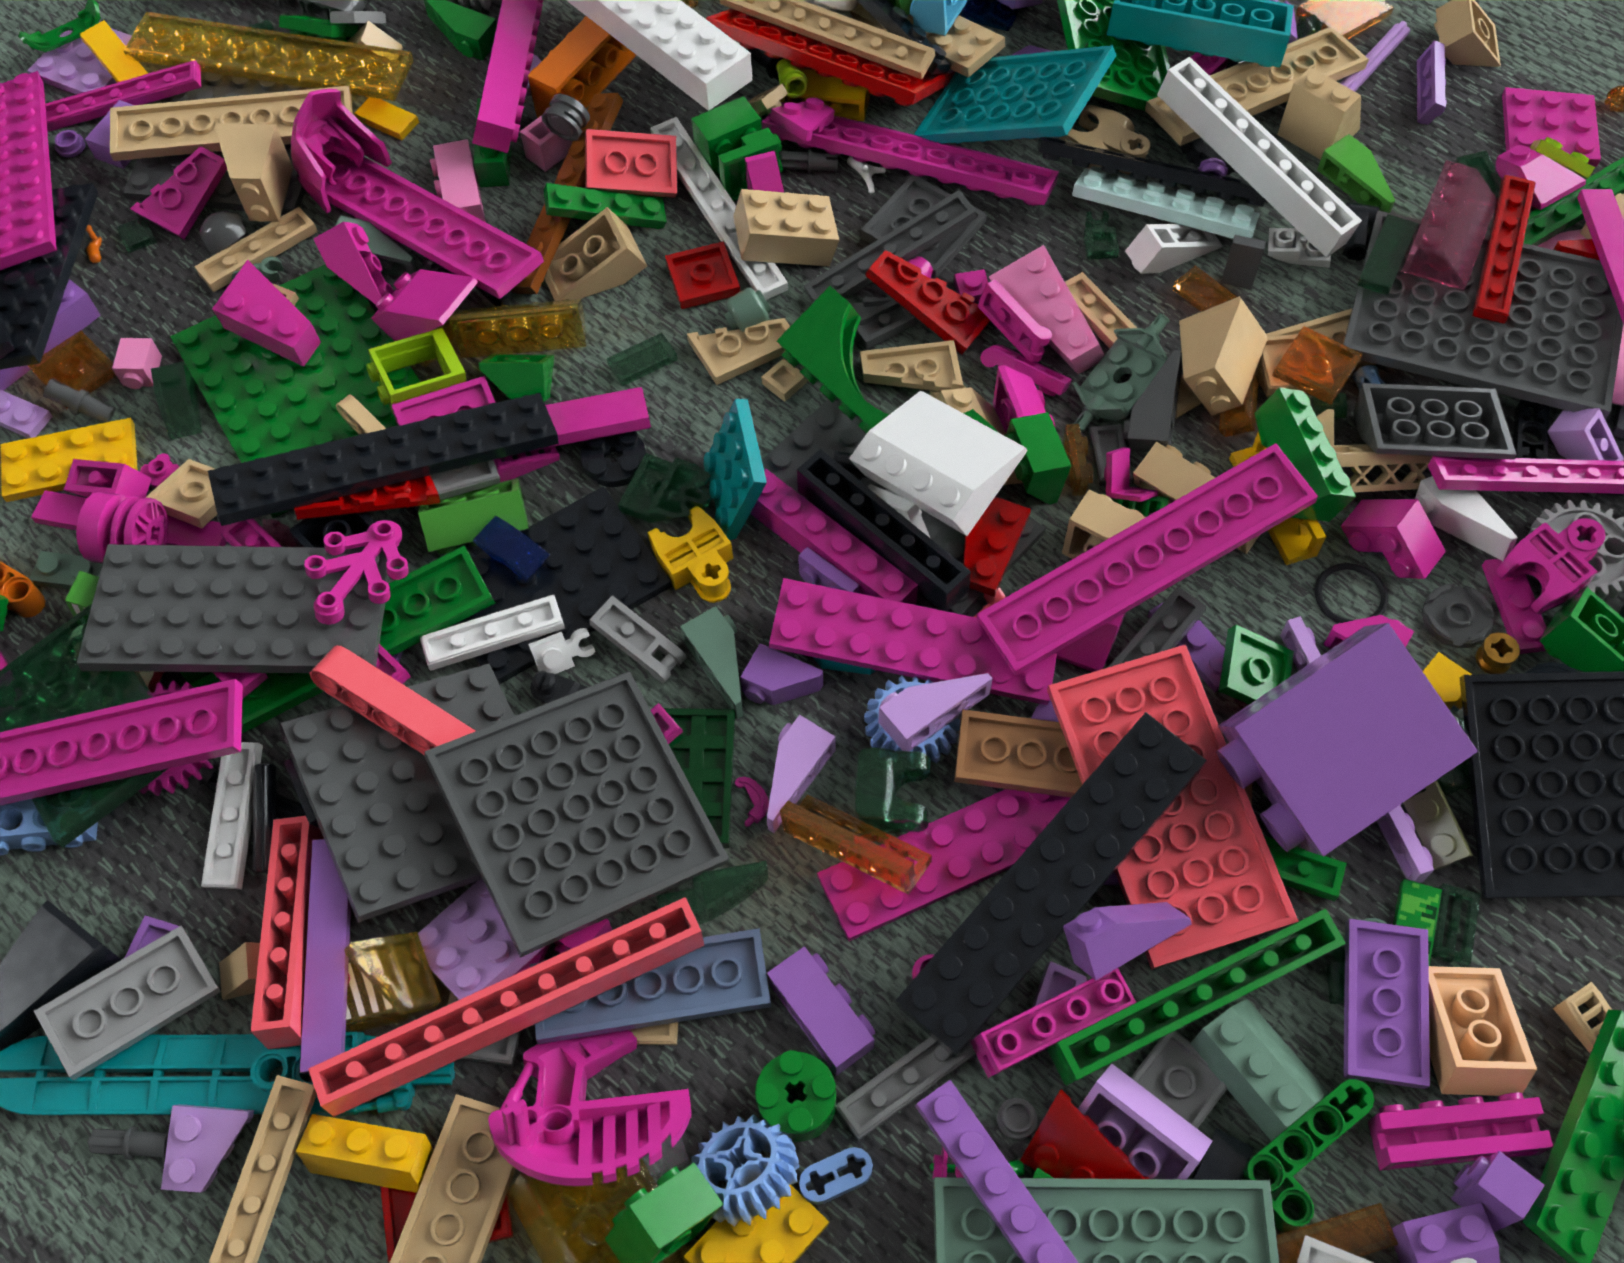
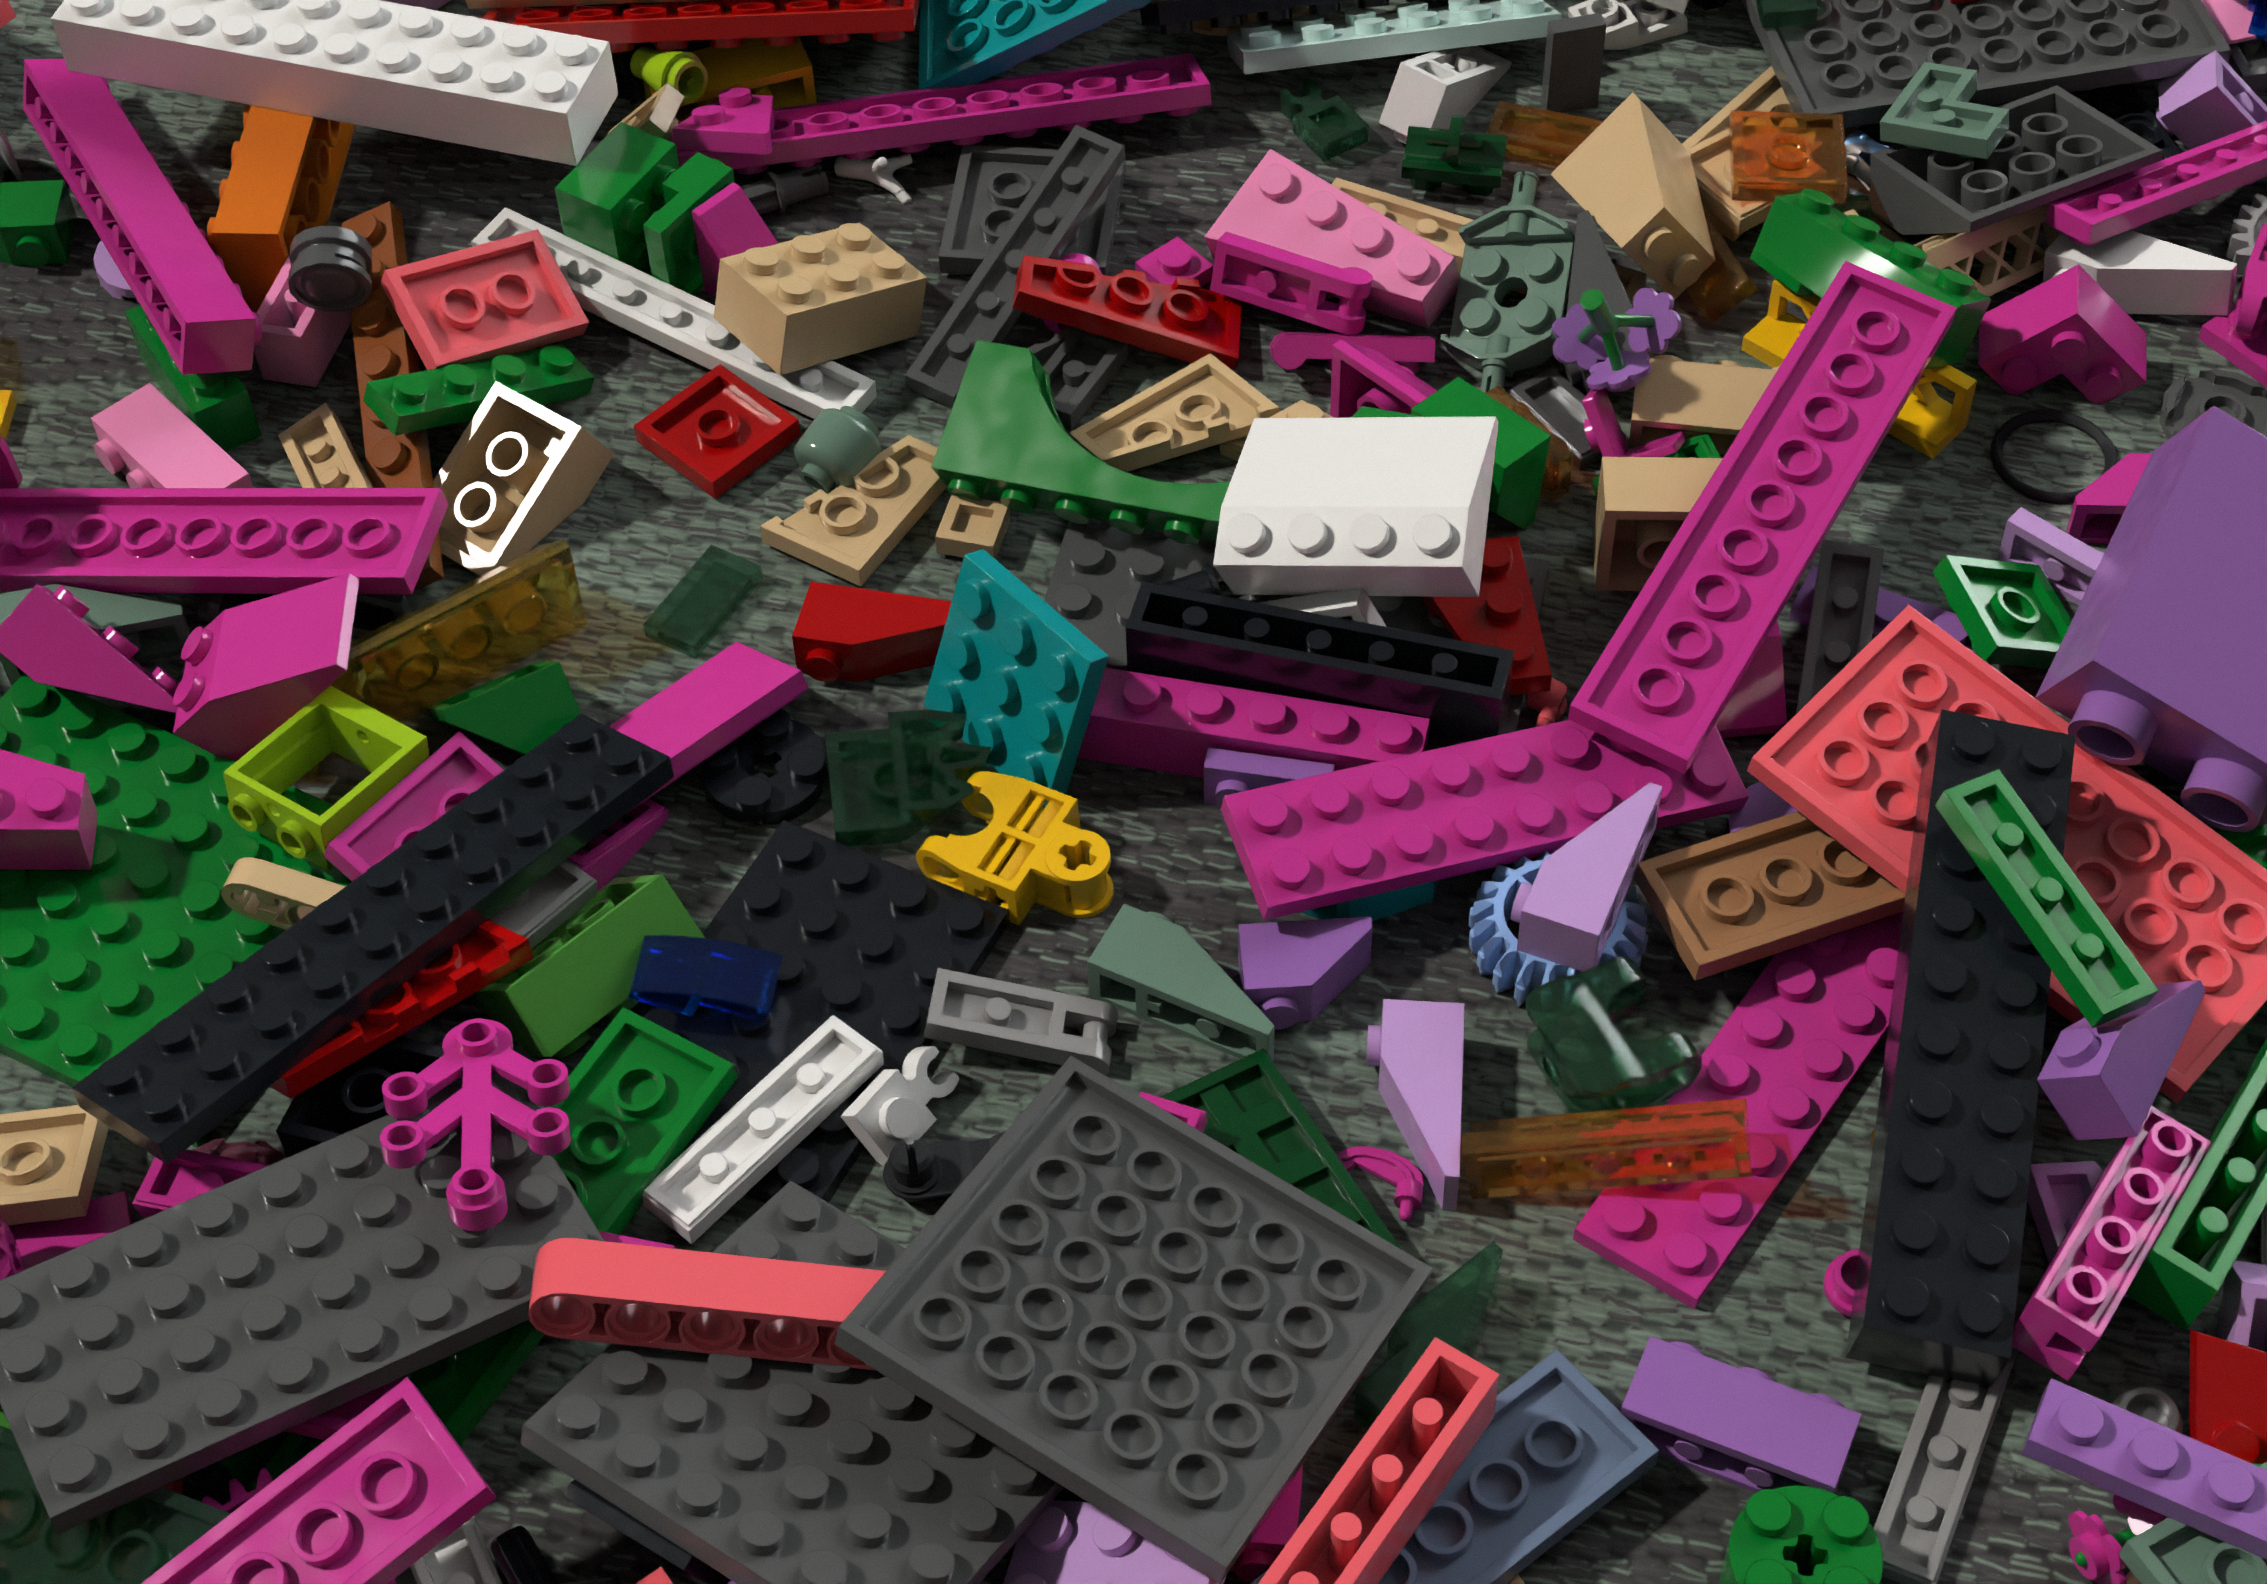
camera: 30 degrees left, 10 degrees down
(521, 211) = (323, 452): none -> tan plate
(693, 408) = (866, 632): none -> red slope
(1122, 838) = (2046, 898): none -> green plate
(1135, 422) = (1589, 337): none -> medium lavender plant
(1148, 287) = (1454, 157): none -> dark green hips
(1409, 376) = (1937, 114): none -> sand green plate

